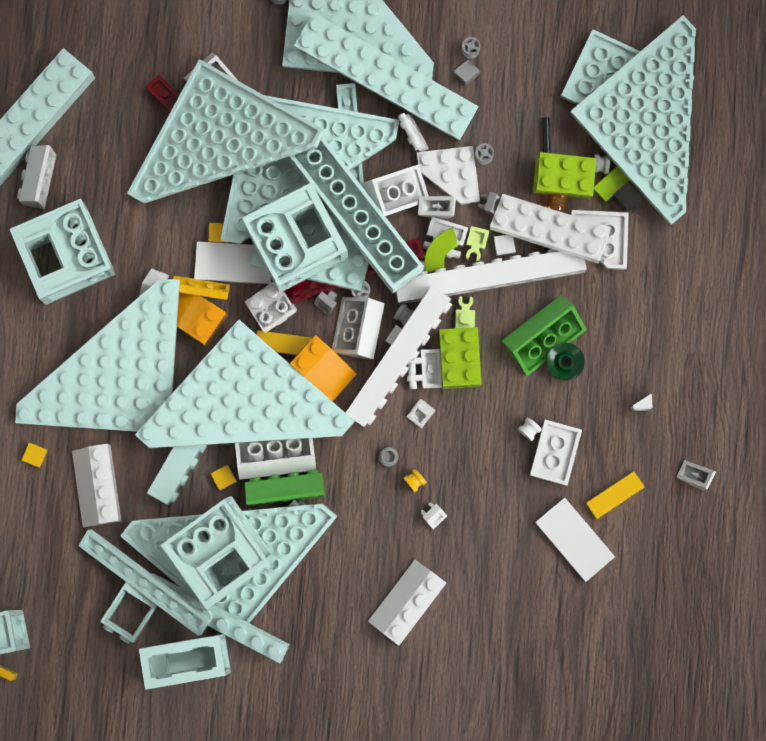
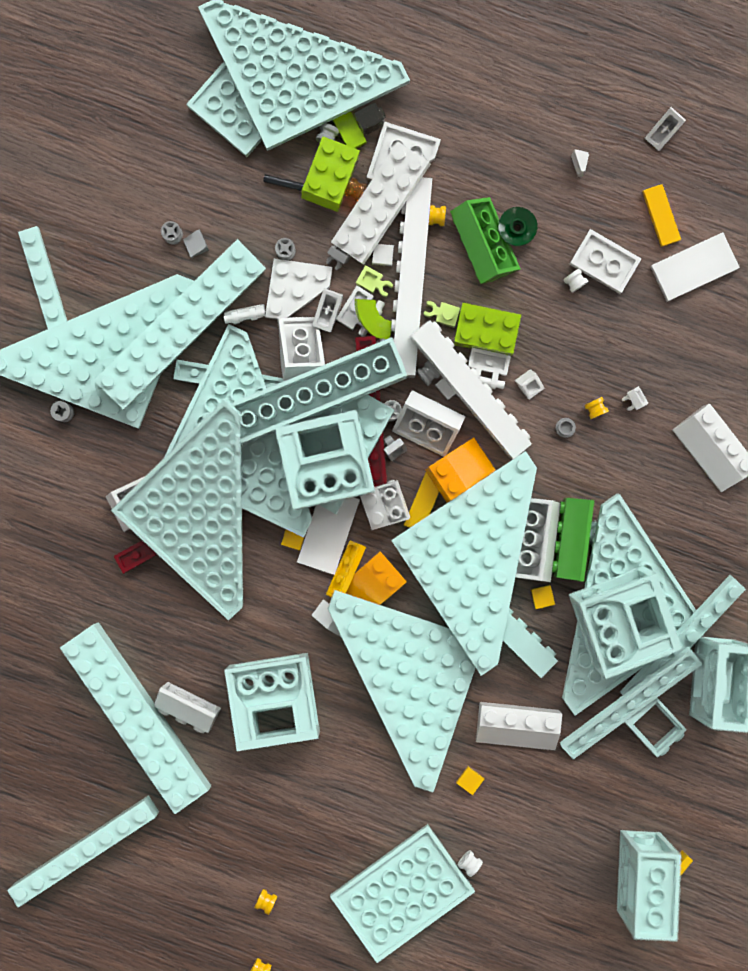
camera: 70 degrees left, 5 degrees up
(554, 284) = (437, 215): none -> yellow wheel

